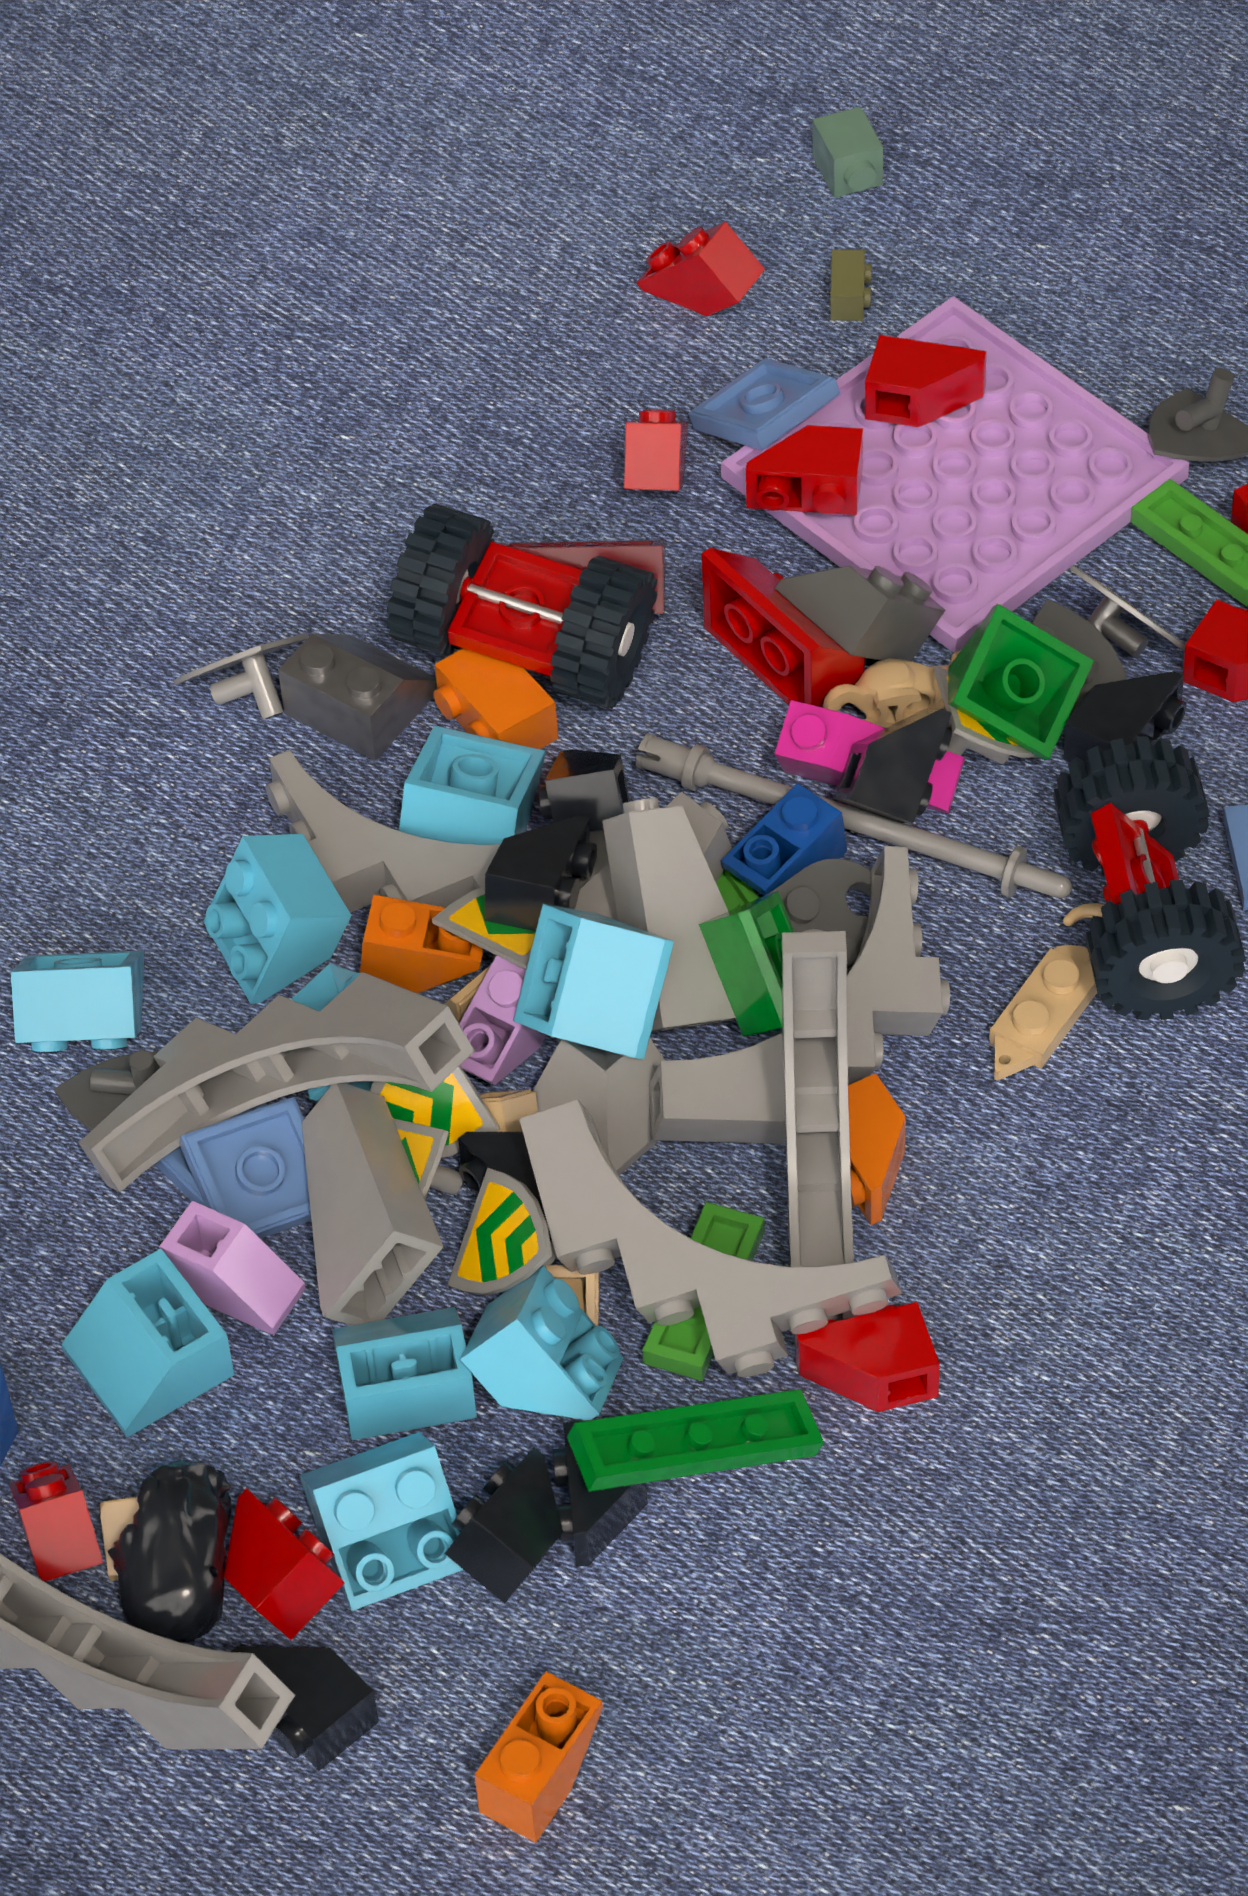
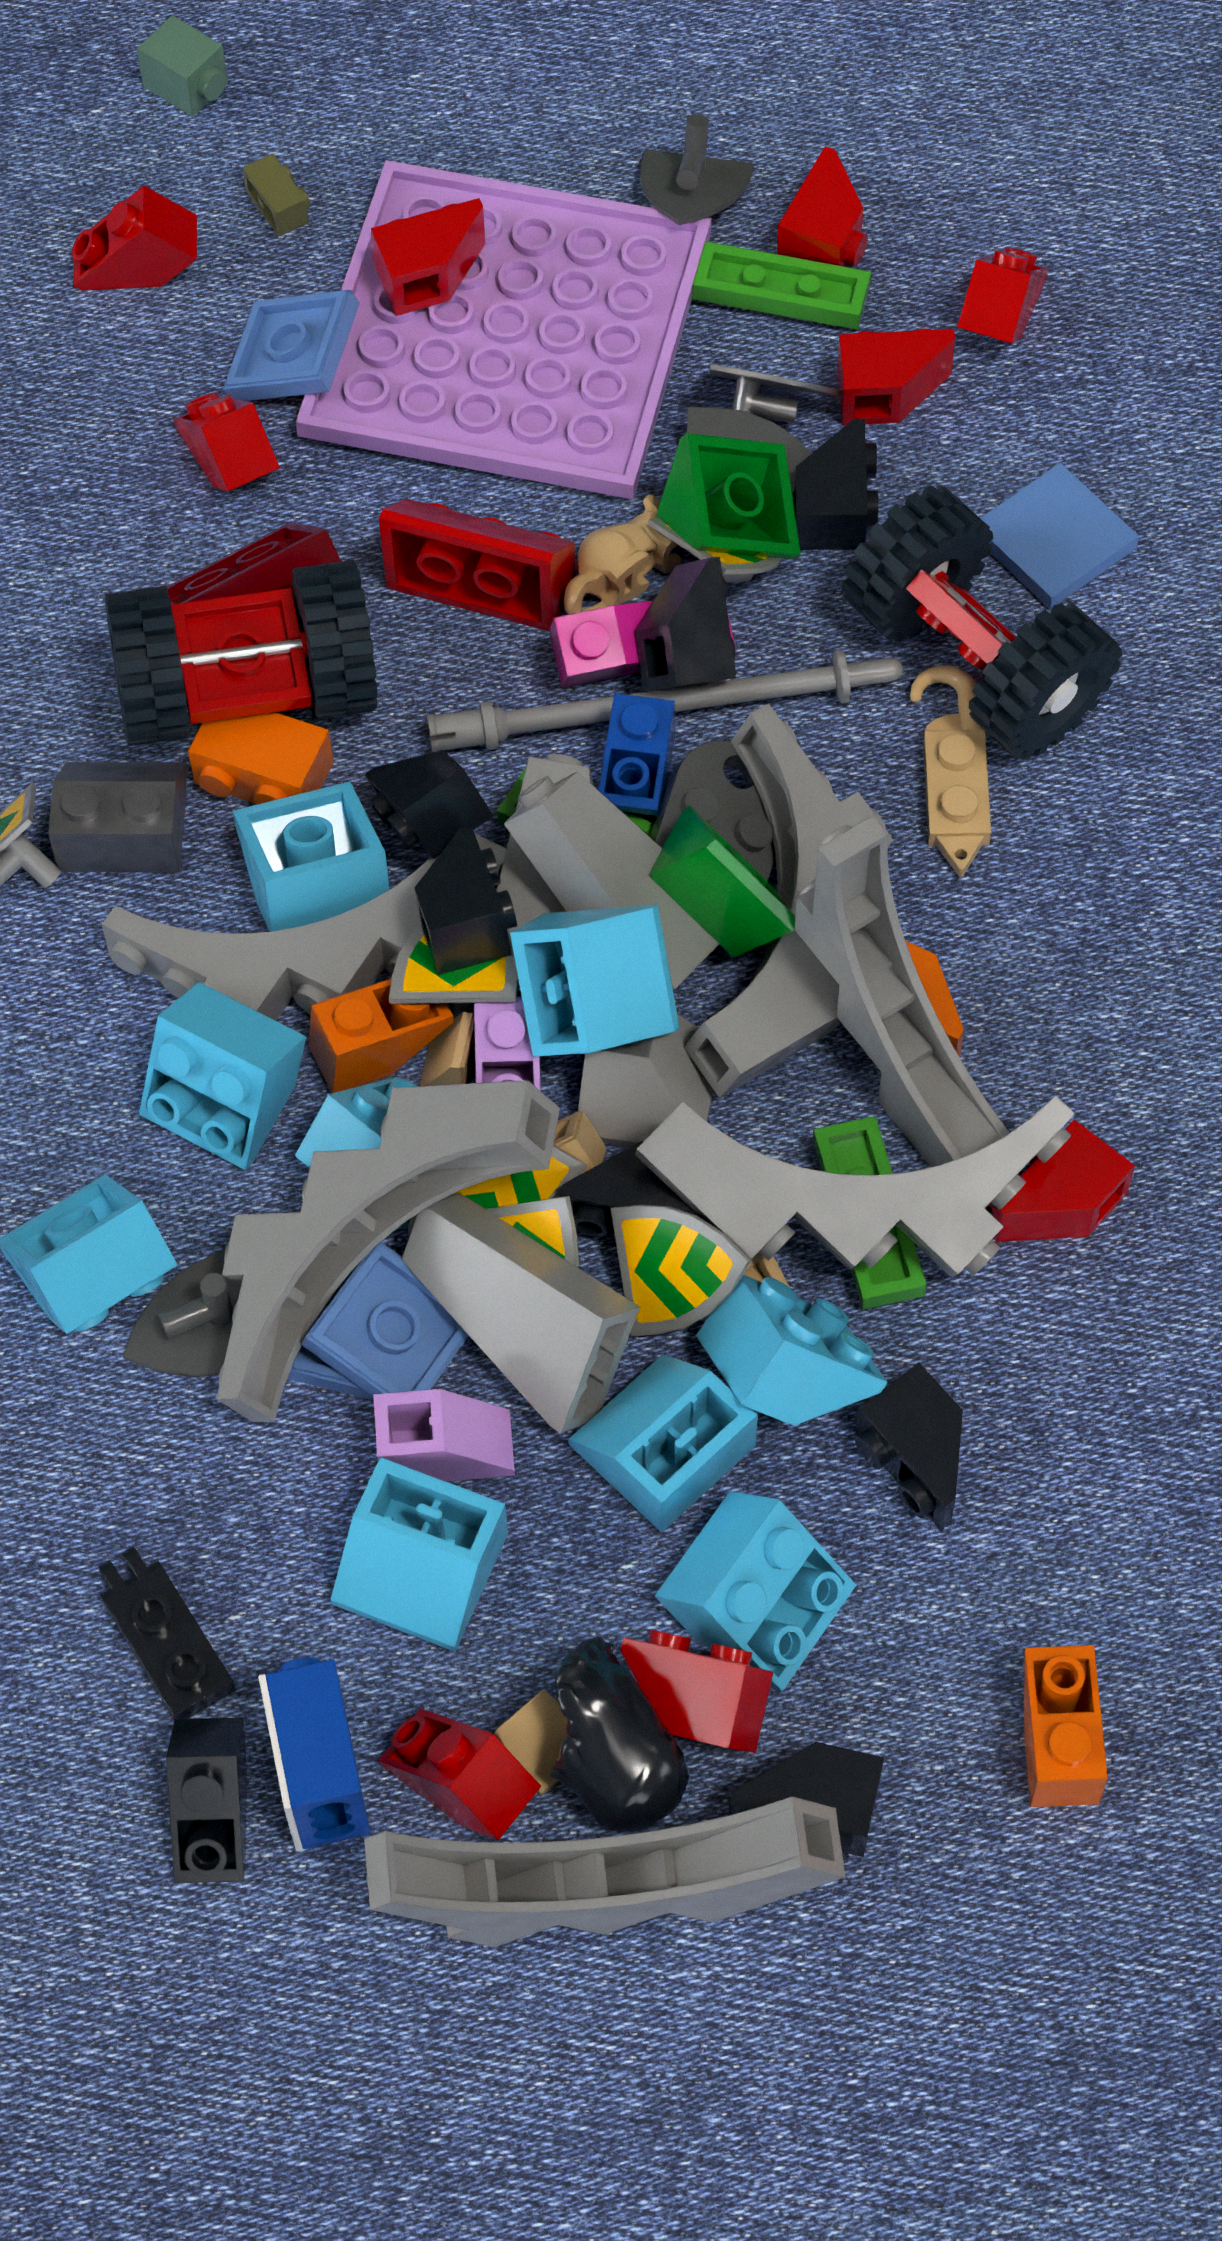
camera: 35 degrees left, 10 degrees up
(511, 1530) = (879, 1531): black slope -> none
(694, 1439) = (982, 1357): green plate -> none
(809, 472) = (399, 390): red slope -> none
(867, 609) = (547, 499): dark grey slope -> none

